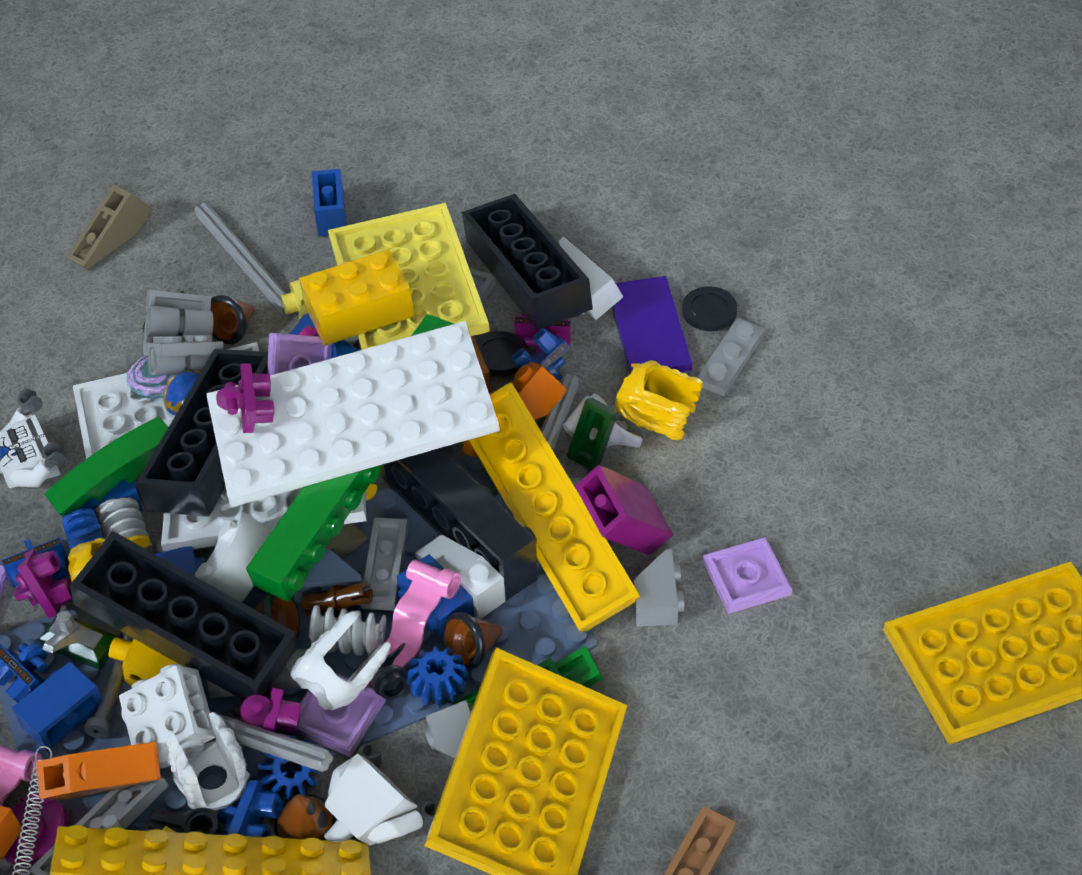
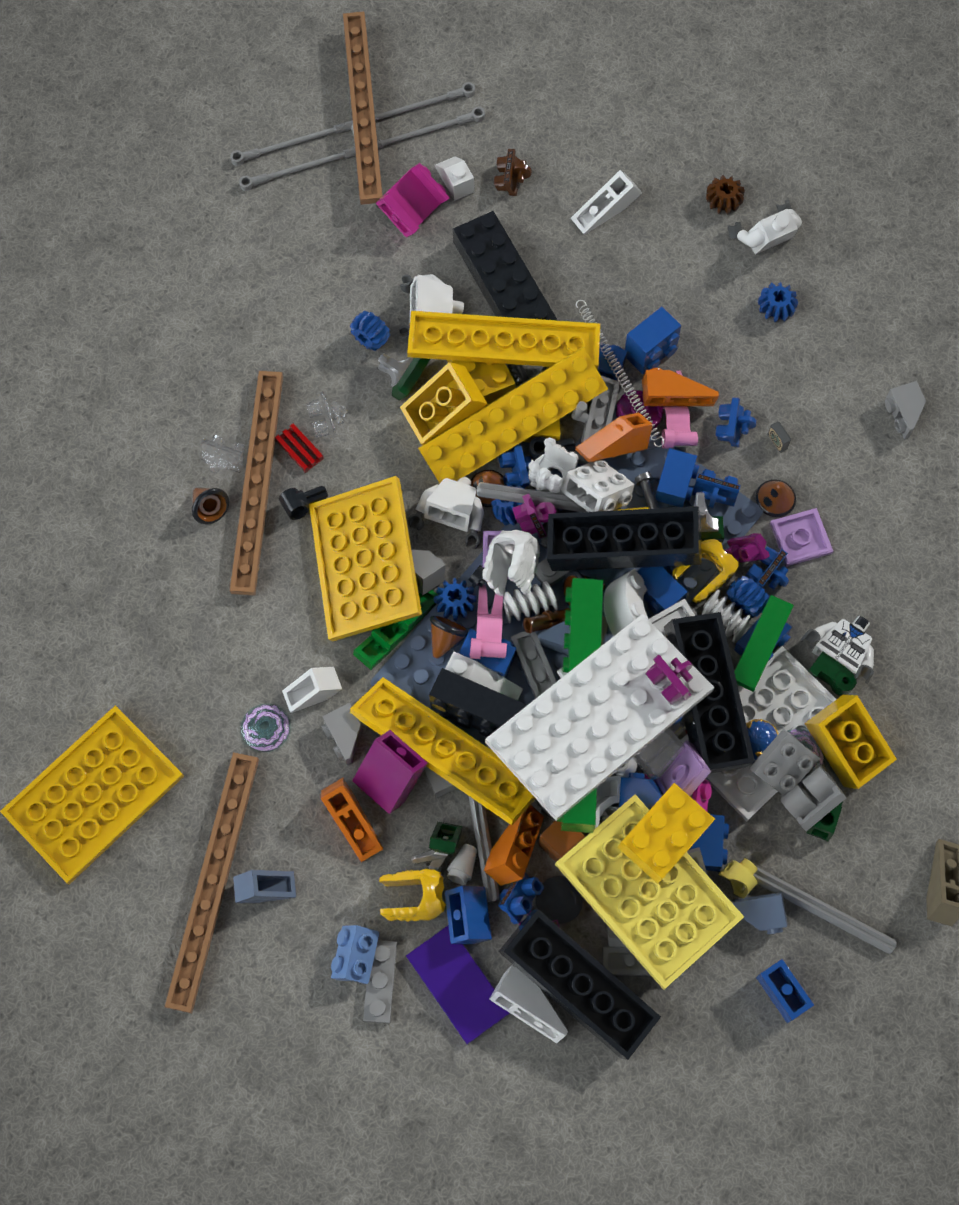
camera: 155 degrees right, 20 degrees up
(58, 429) = (834, 674): none -> dark green leg
(97, 353) = (850, 741): none -> yellow brick
(230, 313) = (783, 836): dark orange hat -> none
(297, 260) = (763, 912): none -> sand blue slope
(606, 363) = (468, 915): none -> blue brick
(675, 654) = (312, 688): none -> white slope
(694, 505) = (351, 819): none -> orange slope
(709, 308) = (416, 1024): black piece -> none
(747, 575) = (291, 780): lavender tile -> none
(750, 378) = (354, 954): none -> medium blue bracket
(754, 658) = (265, 739): none -> dish
(827, 473) = (264, 886): none -> sand blue slope
(880, 511) = (211, 883): none -> medium nougat plate

